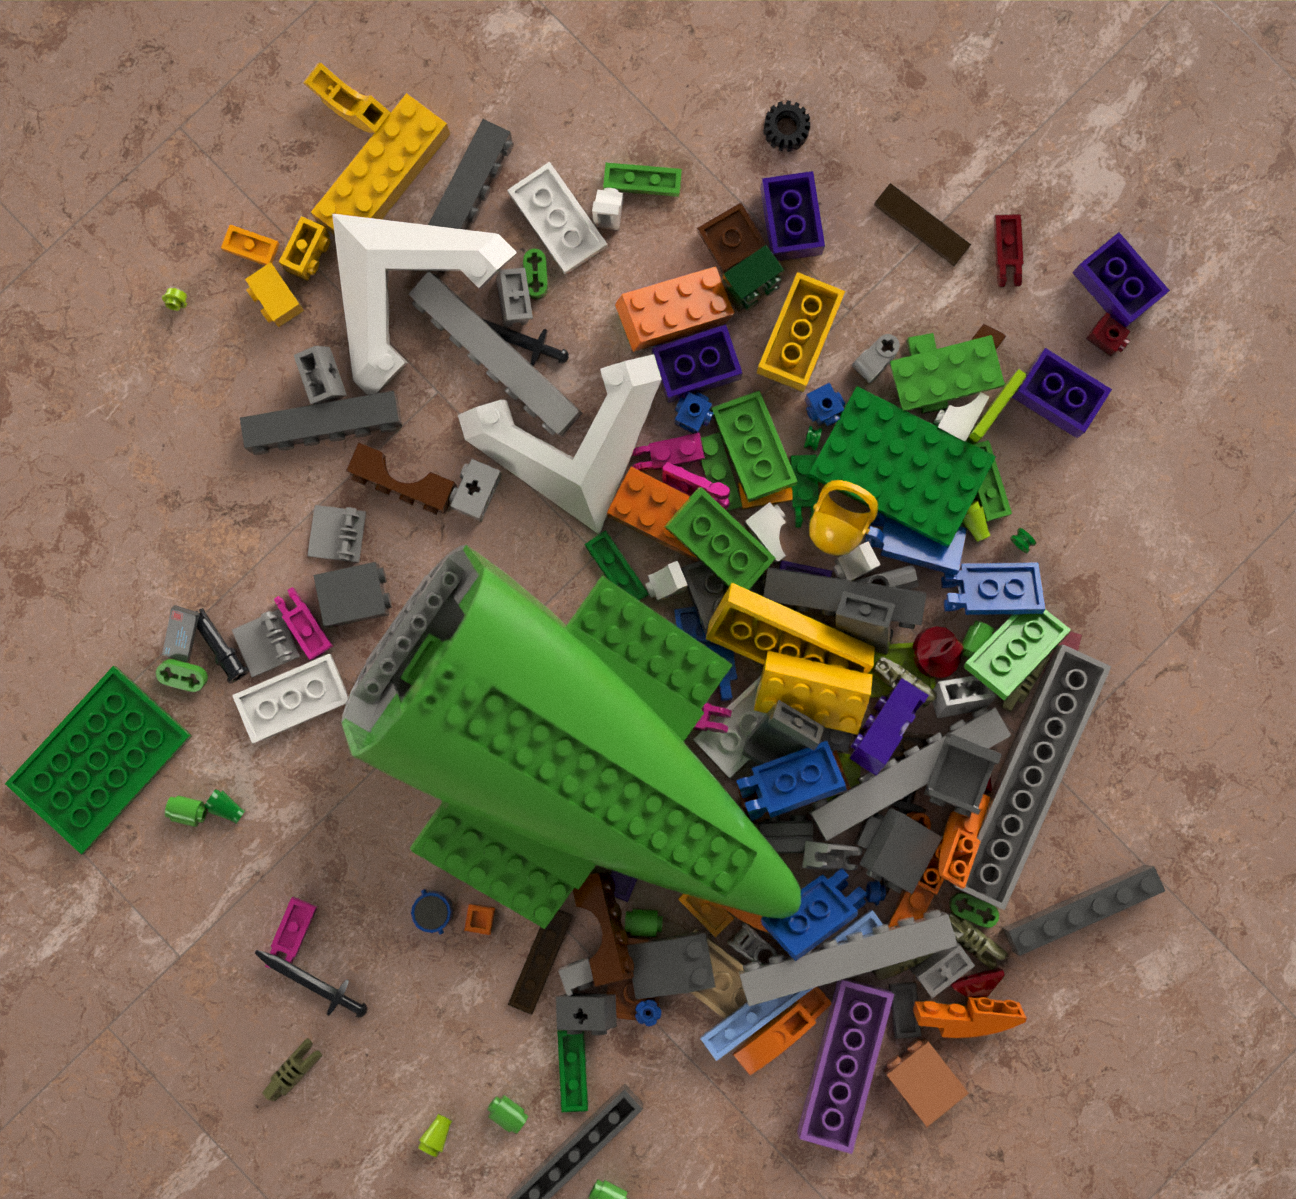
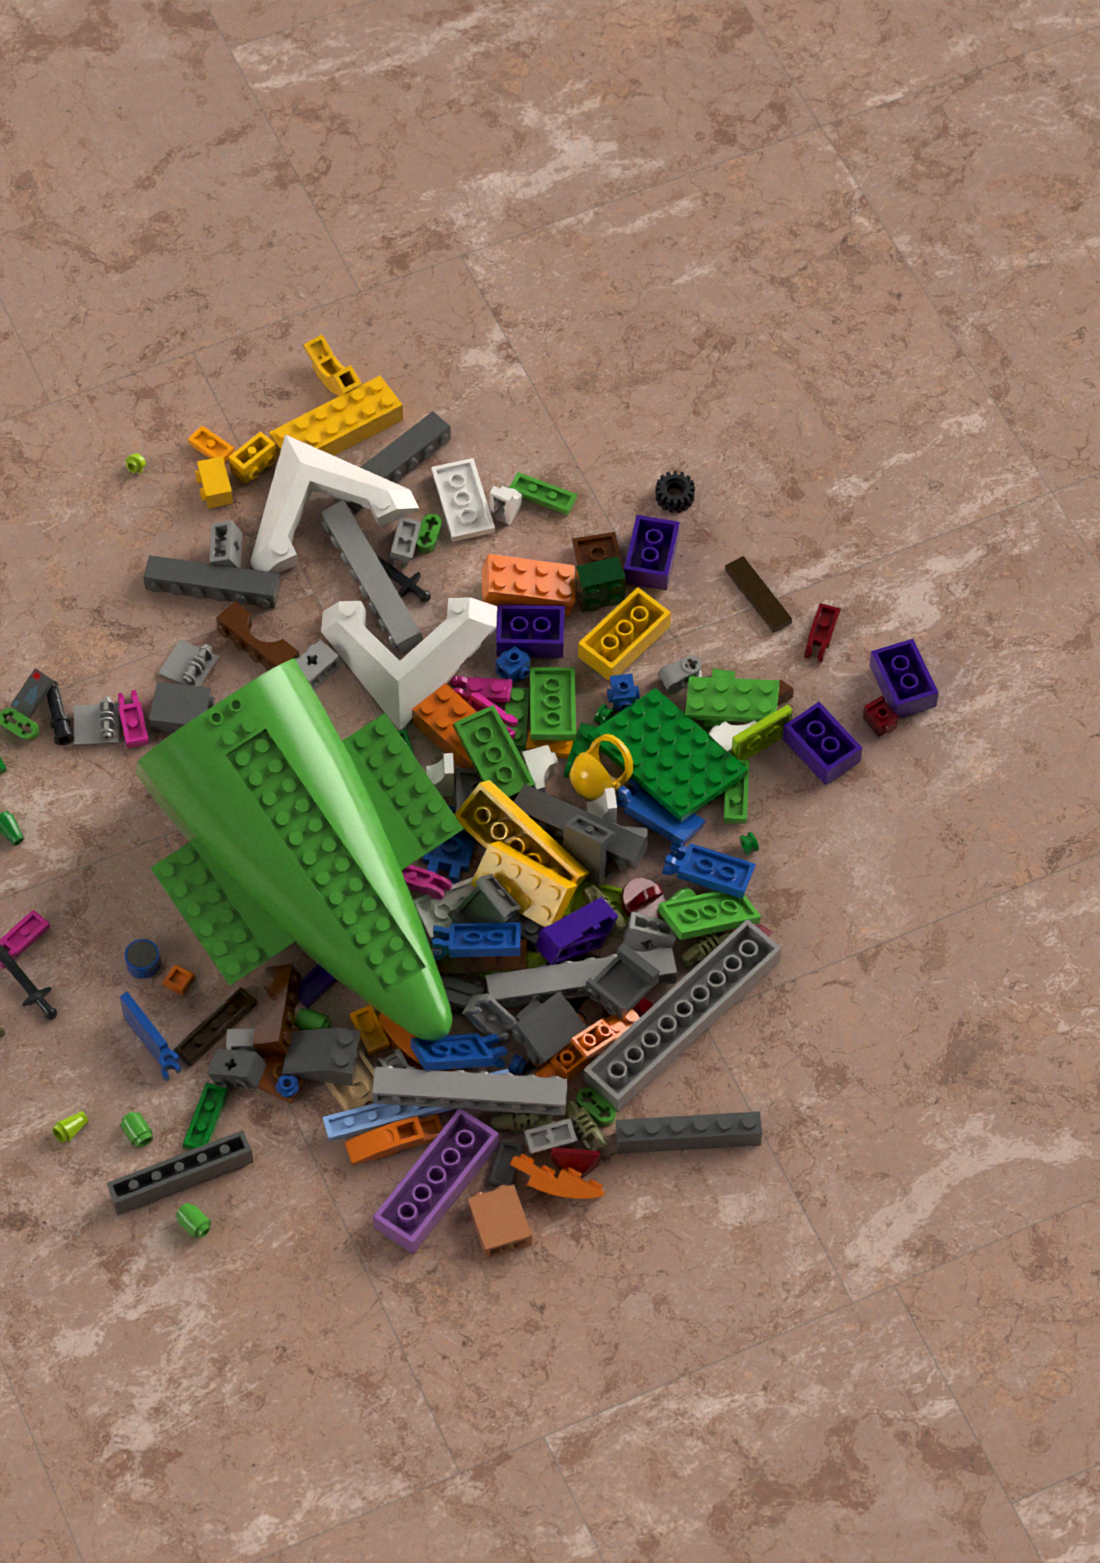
camera: 20 degrees right, 25 degrees down
(291, 698) = (96, 768): white plate -> none
(480, 1010) = (149, 1035): none -> blue tile
(976, 522) = (714, 816): lime cone -> none

